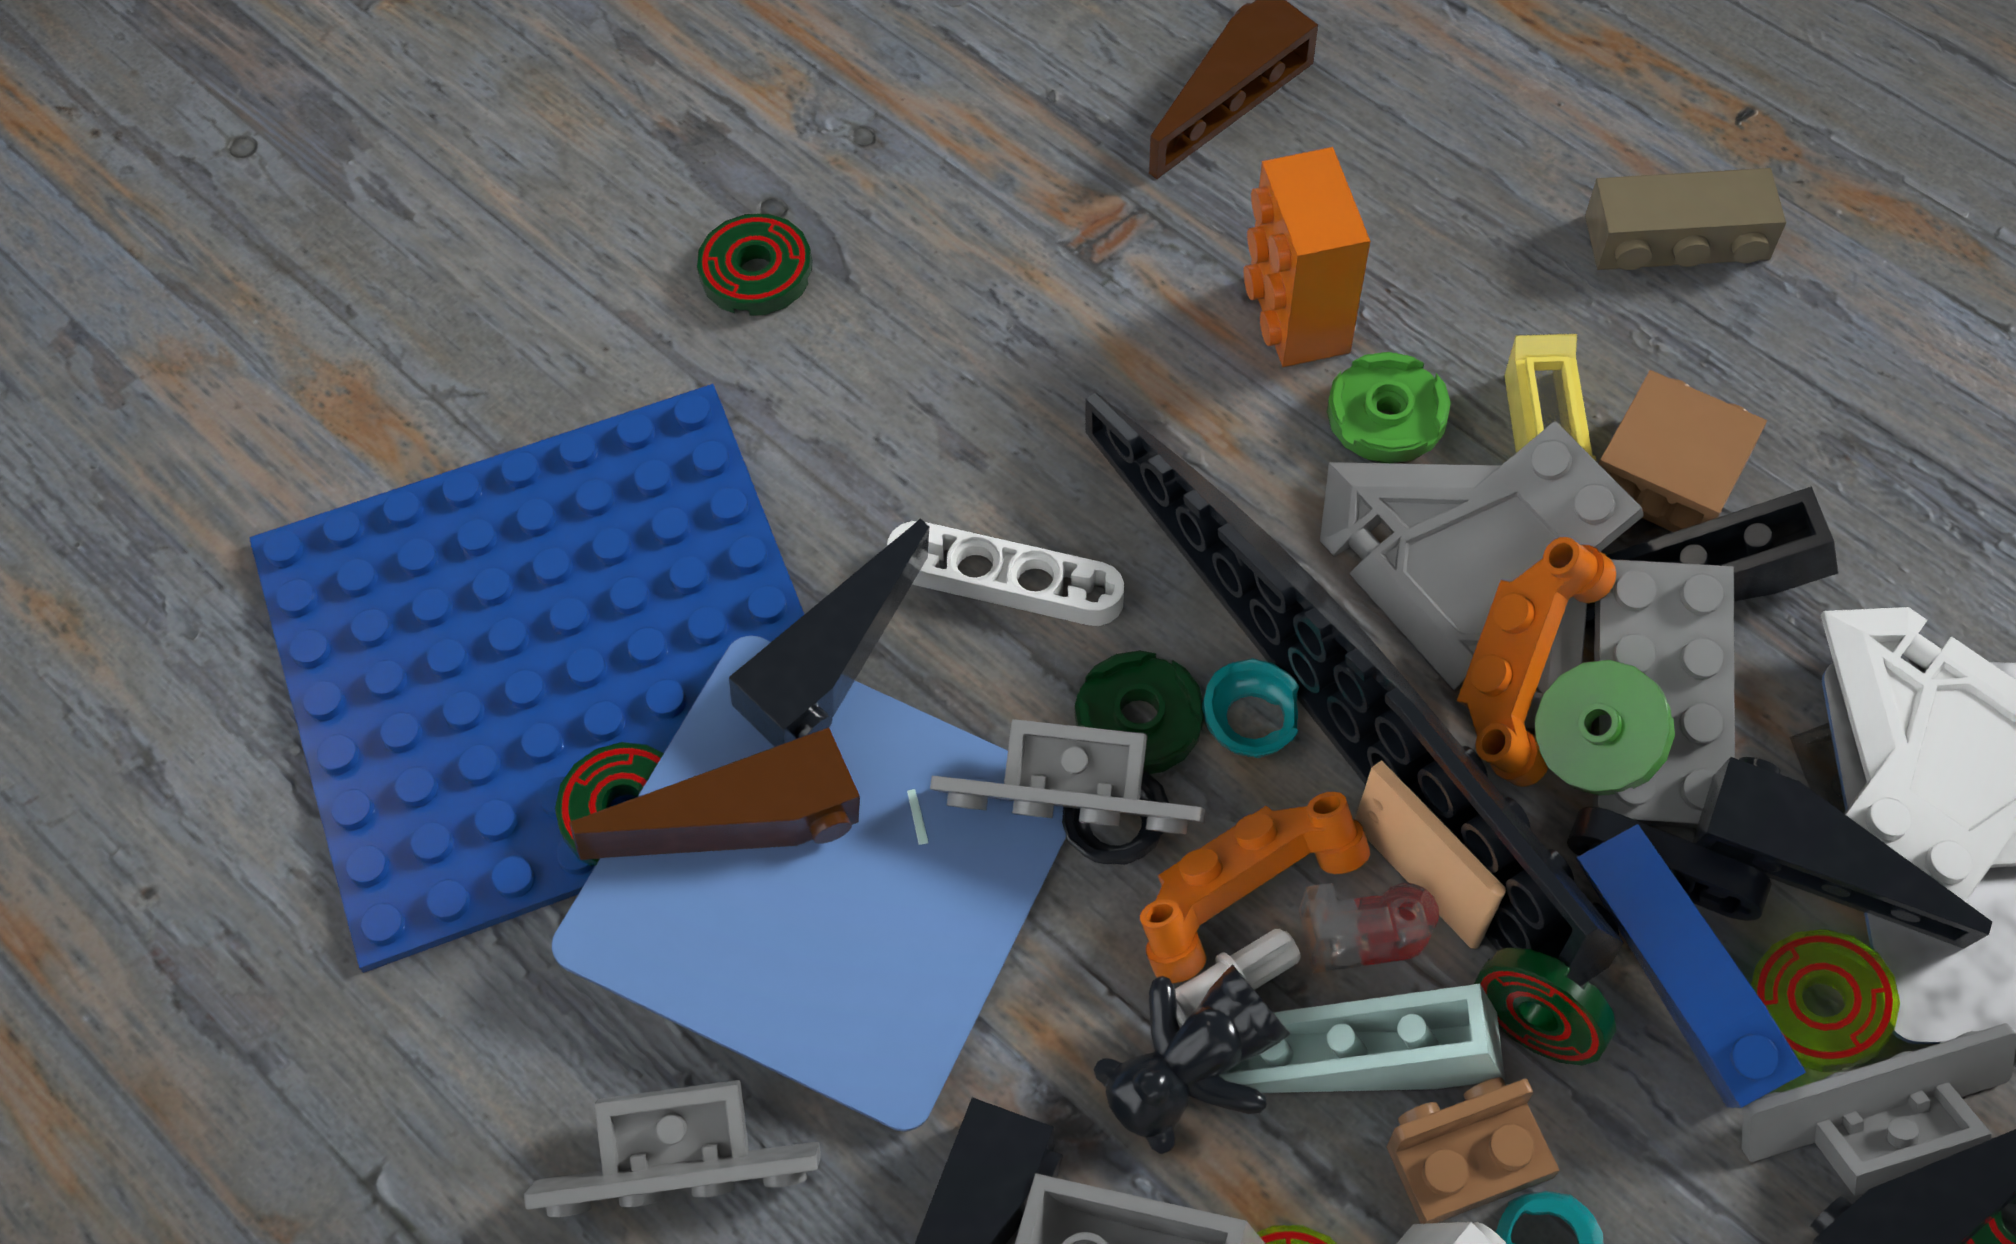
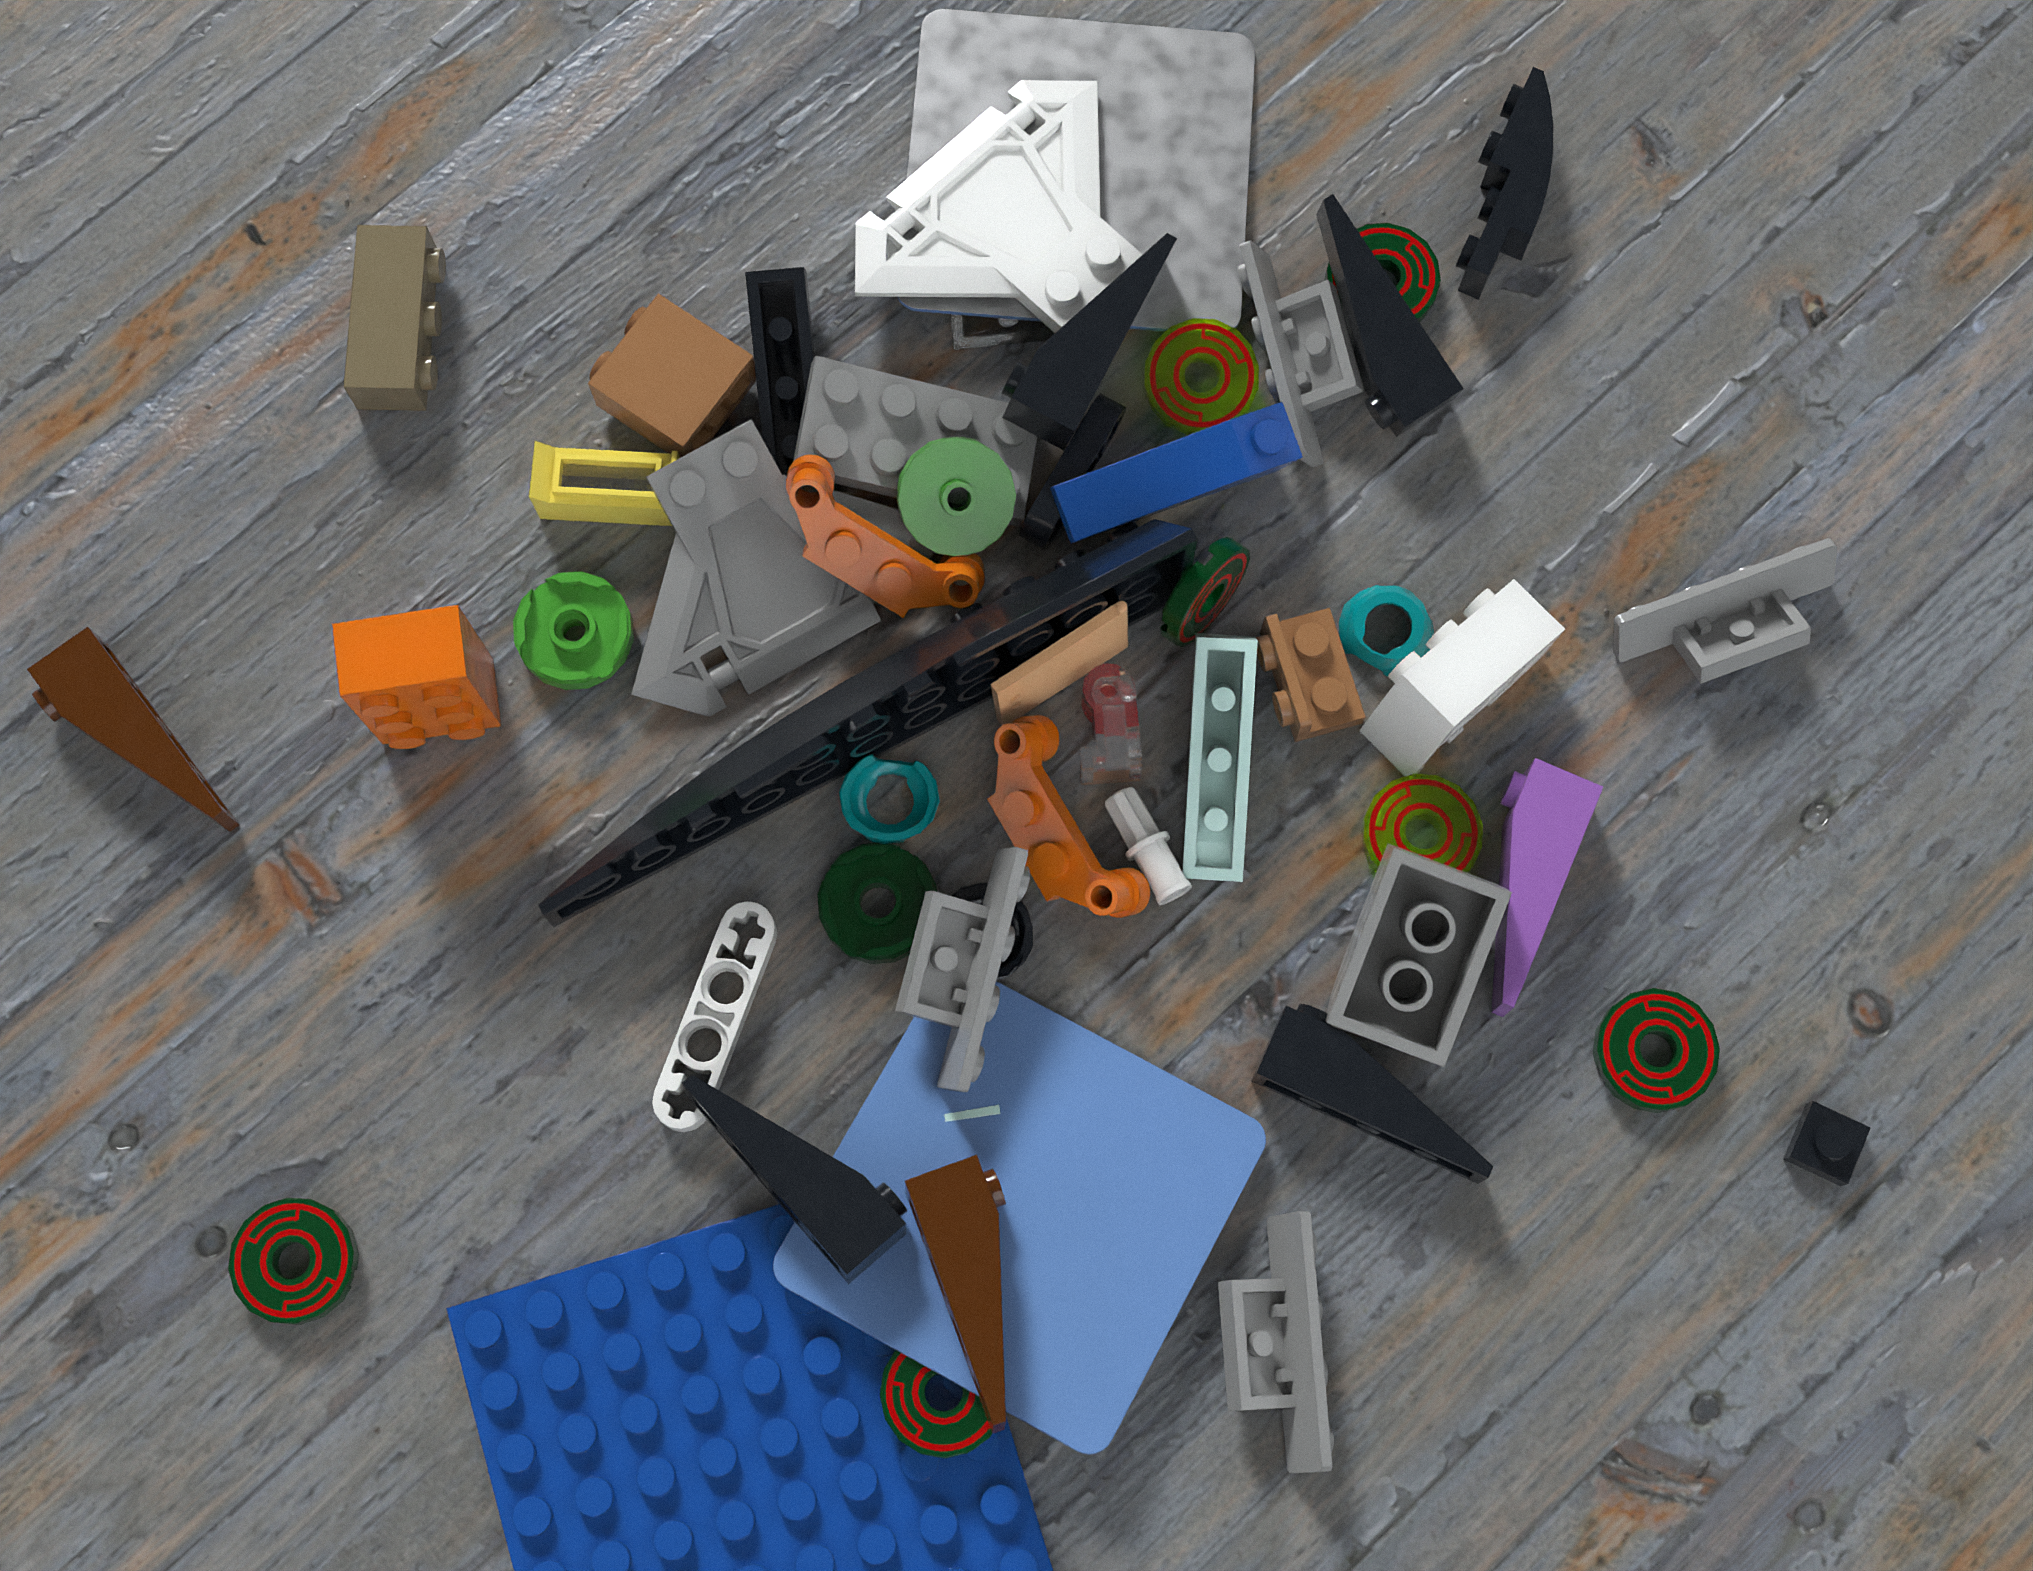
camera: 90 degrees left, 15 degrees up
(1225, 1029) = (1206, 853): black piece -> none

